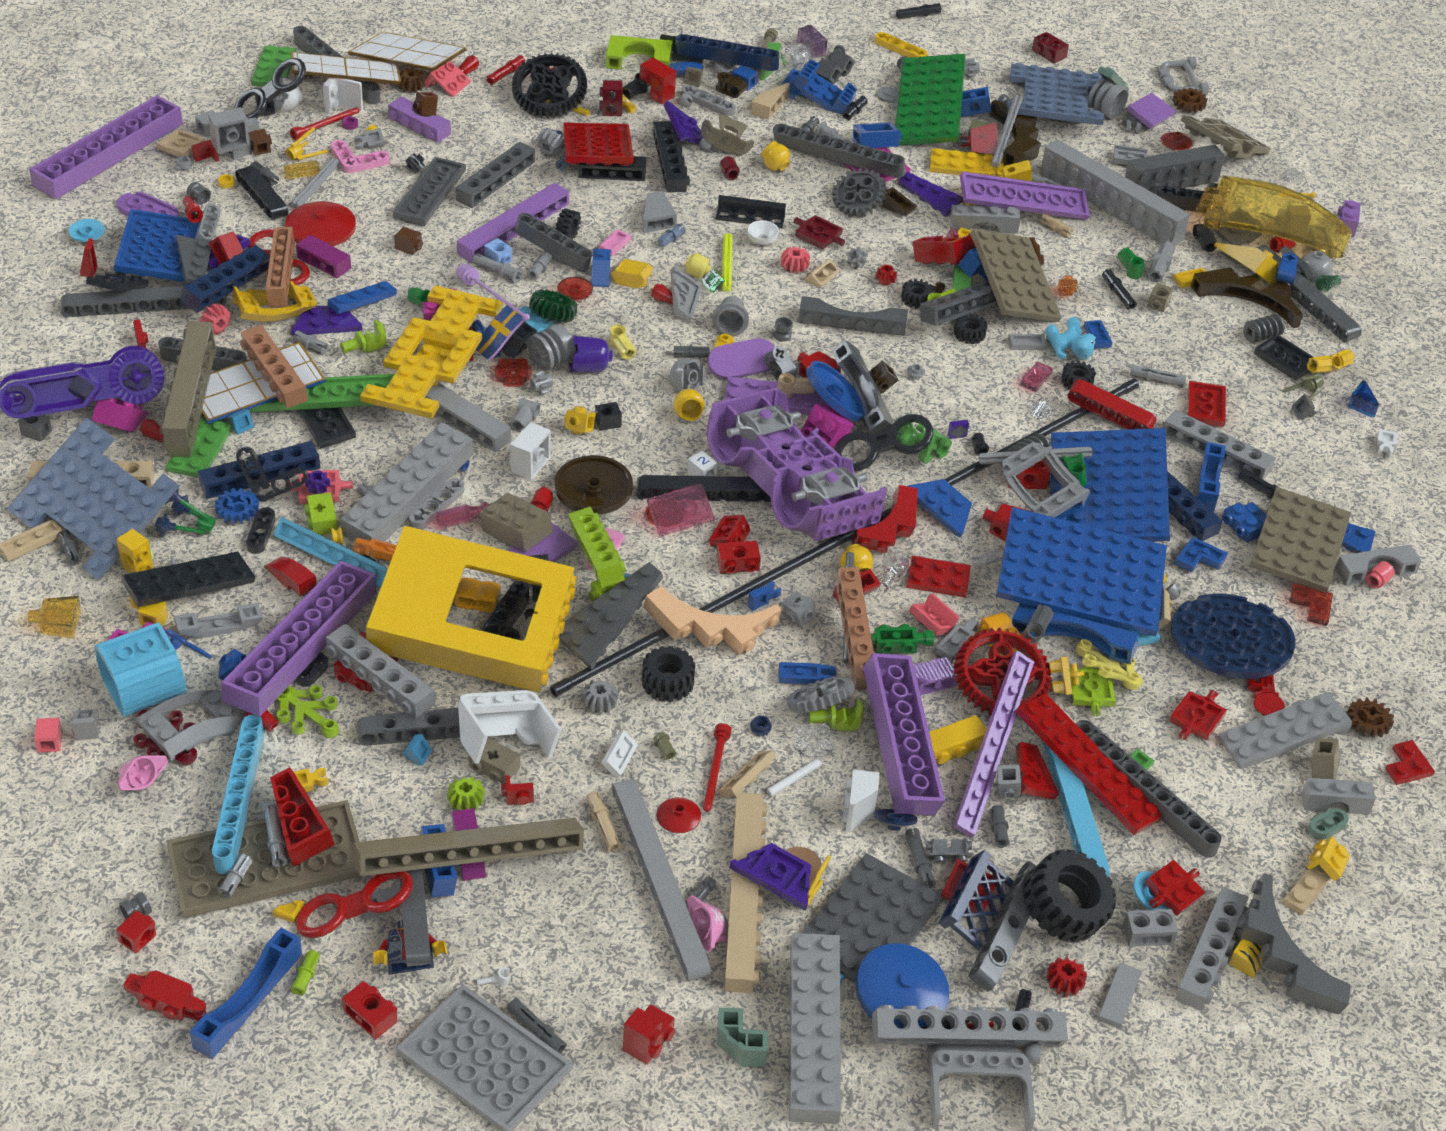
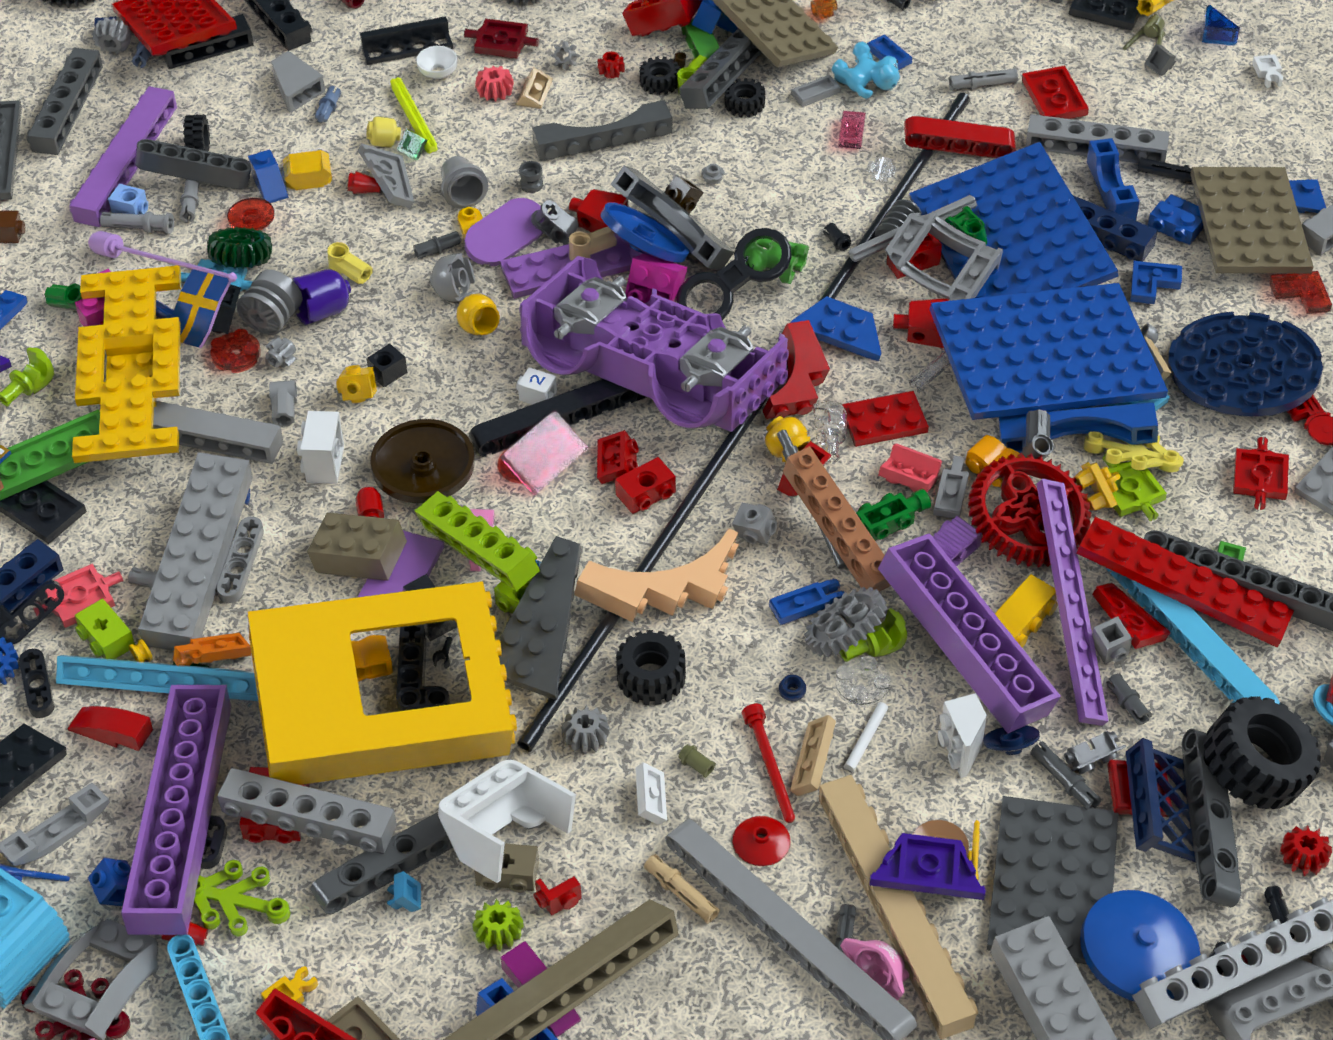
camera: 20 degrees left, 5 degrees up
(317, 482) = (79, 592): dark purple gear -> none
(458, 515) = (279, 562): clear pink wheel -> none
(615, 241) = (262, 136): bright pink tile -> none
(762, 595) = (700, 525): blue plate -> none
(958, 429) = (803, 227): dark purple tile -> none
(1079, 369) = (892, 103): black tyre -> none

